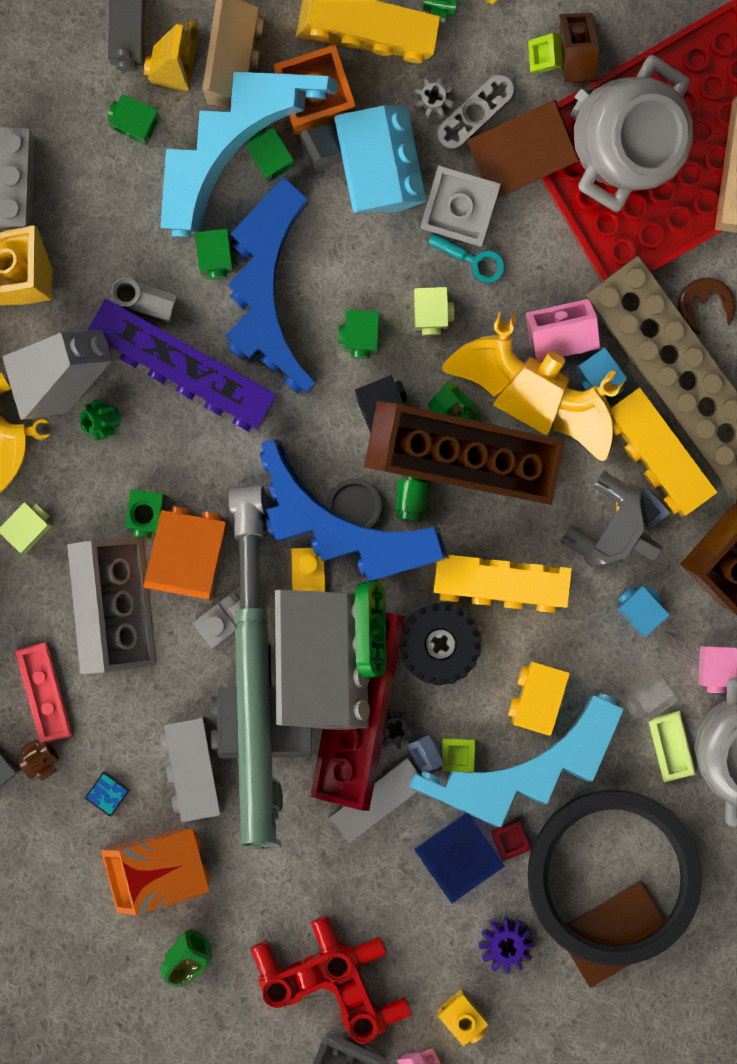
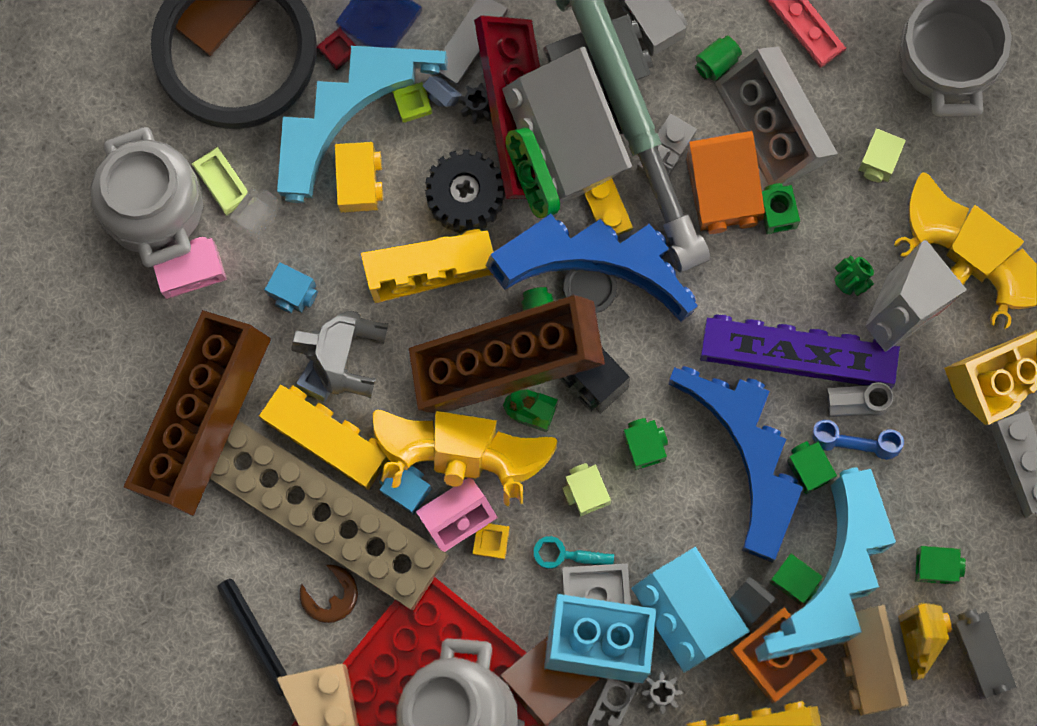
camera: 170 degrees right, 10 degrees down
(143, 686) = (718, 58): none -> green brick
(186, 279) = (886, 447): none -> blue bar
(473, 160) = (600, 639): none -> medium azure slope
(537, 296) = (491, 541): none -> yellow tile

